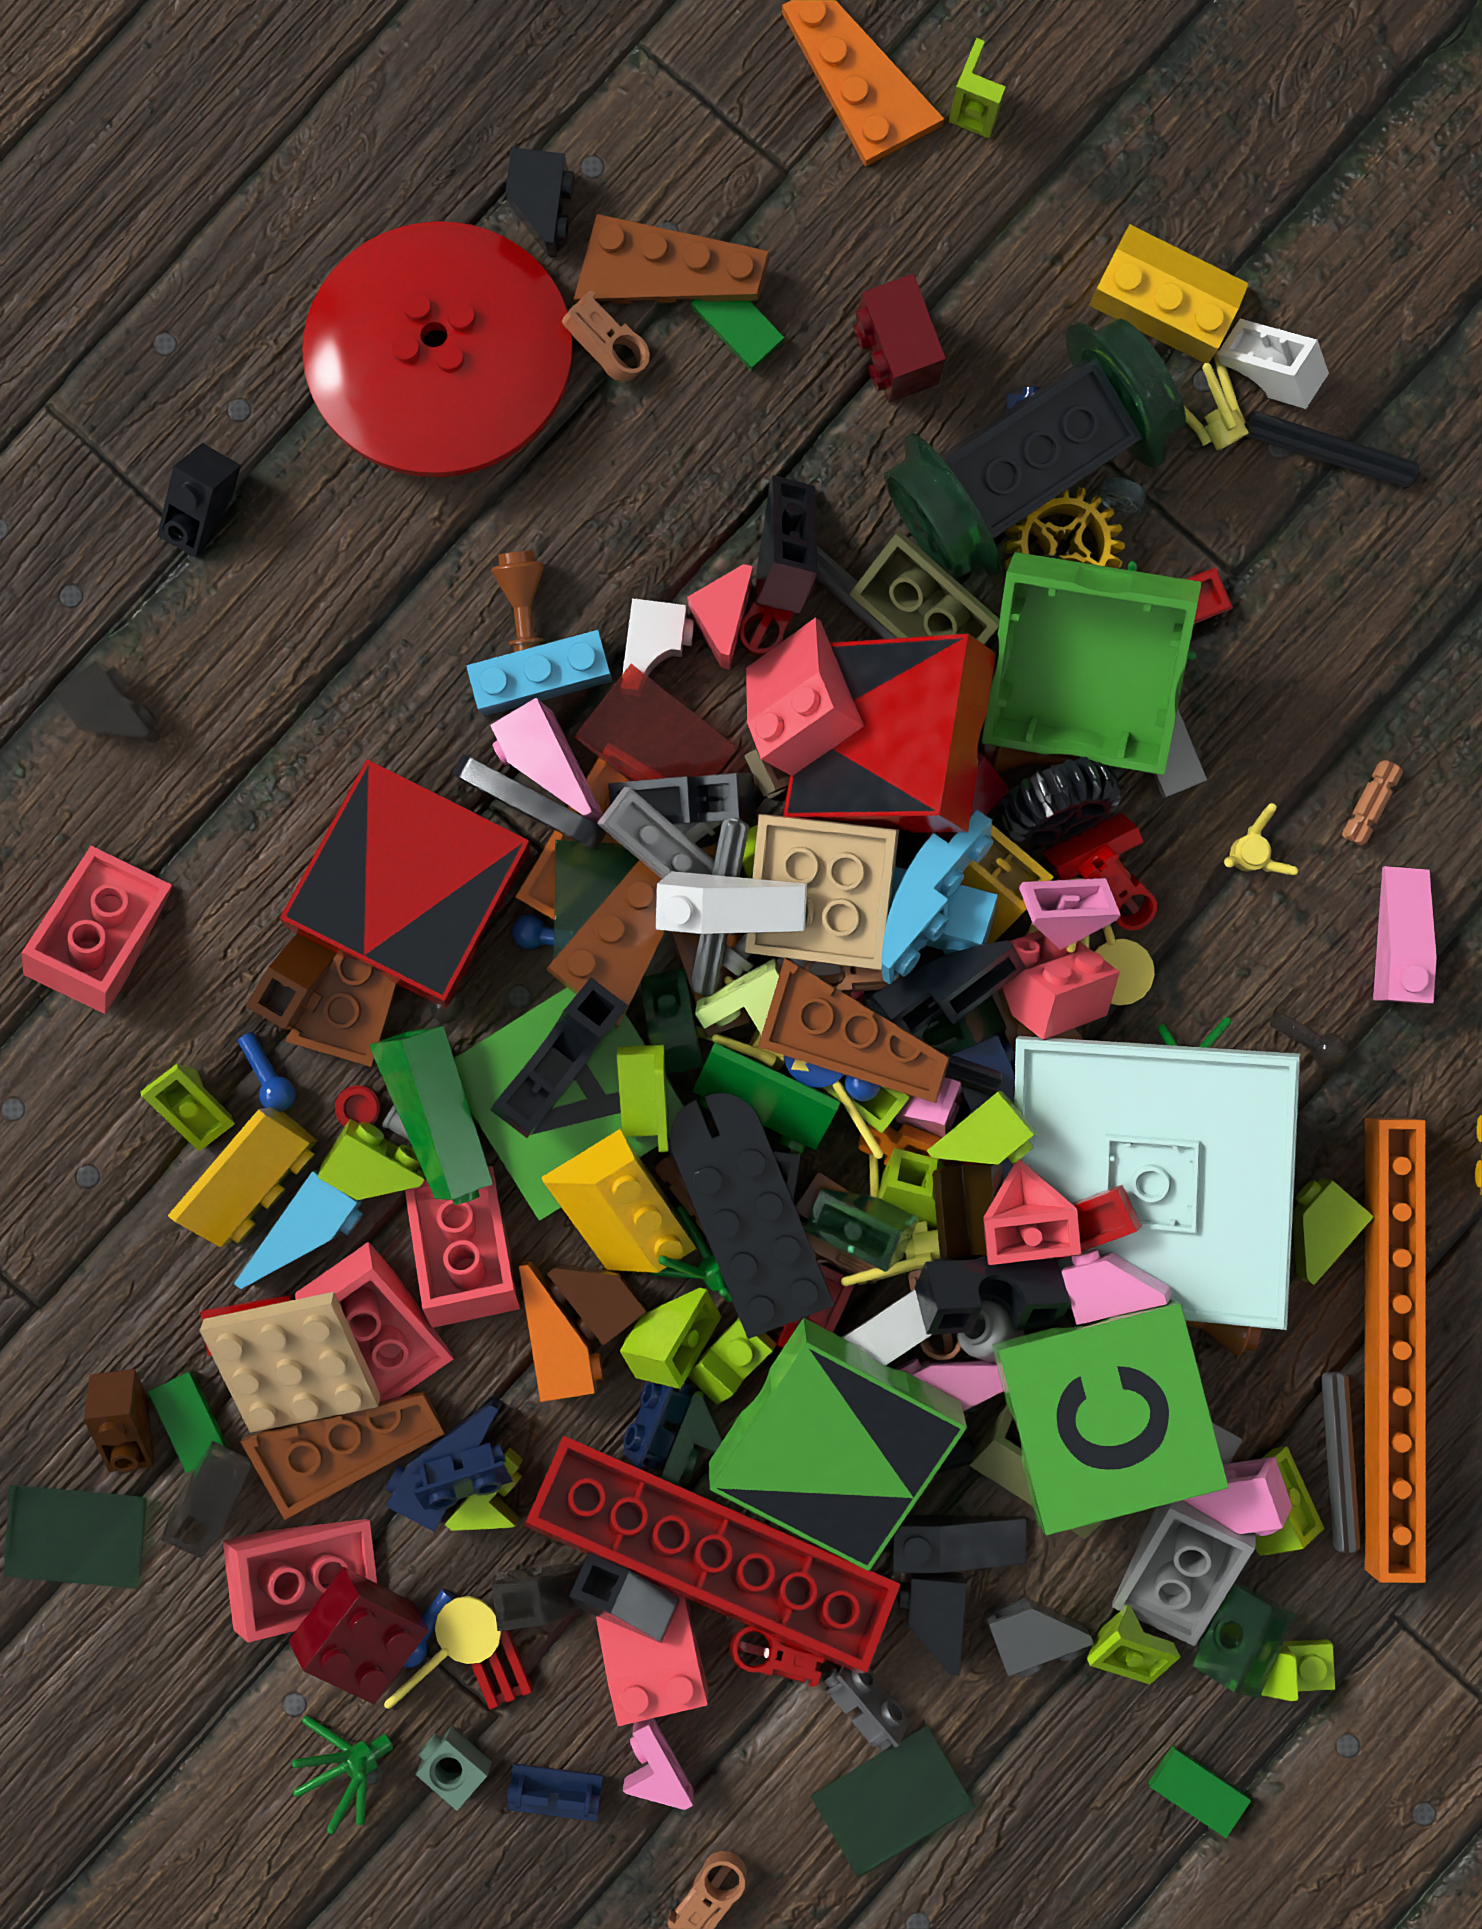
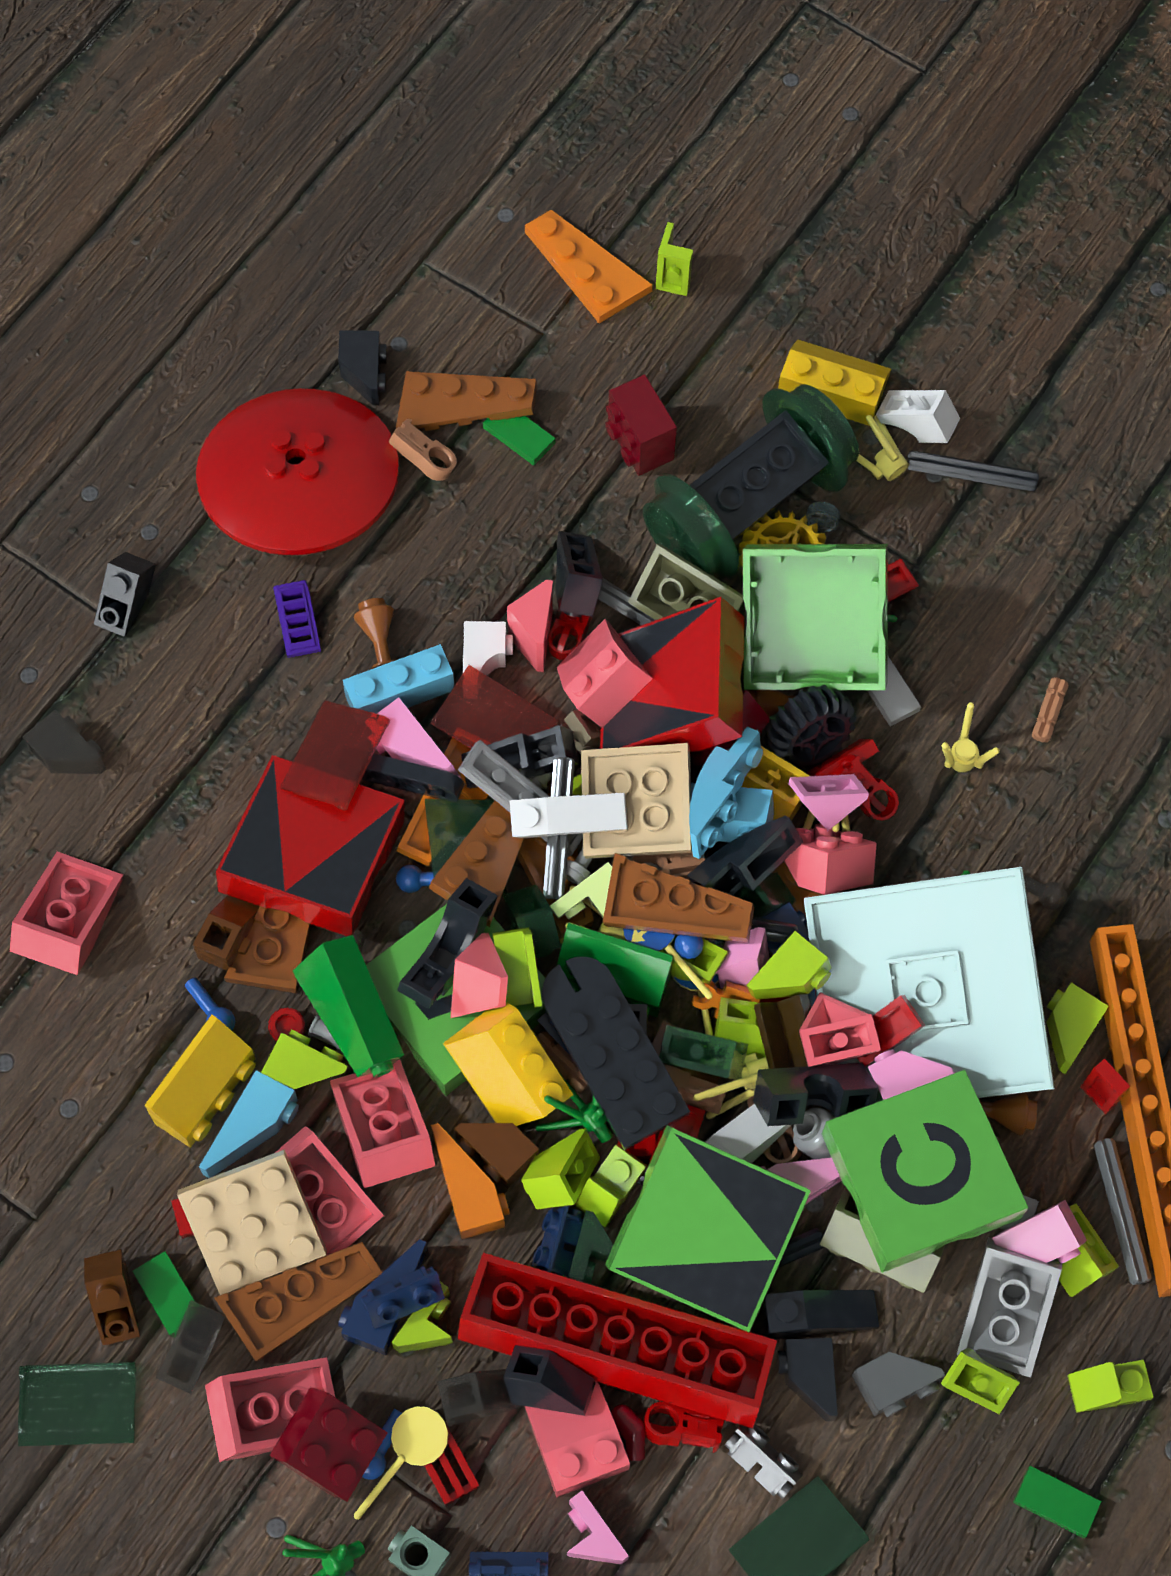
camera: 10 degrees left, 20 degrees down
(188, 1106) = (150, 1034): lime slope -> none
(418, 522) = (294, 597): none -> dark purple slope
(446, 770) = (335, 754): none -> clear red piece
(594, 1103) = (478, 978): none -> coral slope
(715, 1649) = (632, 1430): none -> dark red arm
(1134, 966) = (889, 851): light yellow piece -> none
(1264, 1629) = (1069, 1359): clear green brick -> none
(1350, 1318) = (1105, 1086): none -> red tile
(1405, 938) = (1094, 805): bright pink slope -> none

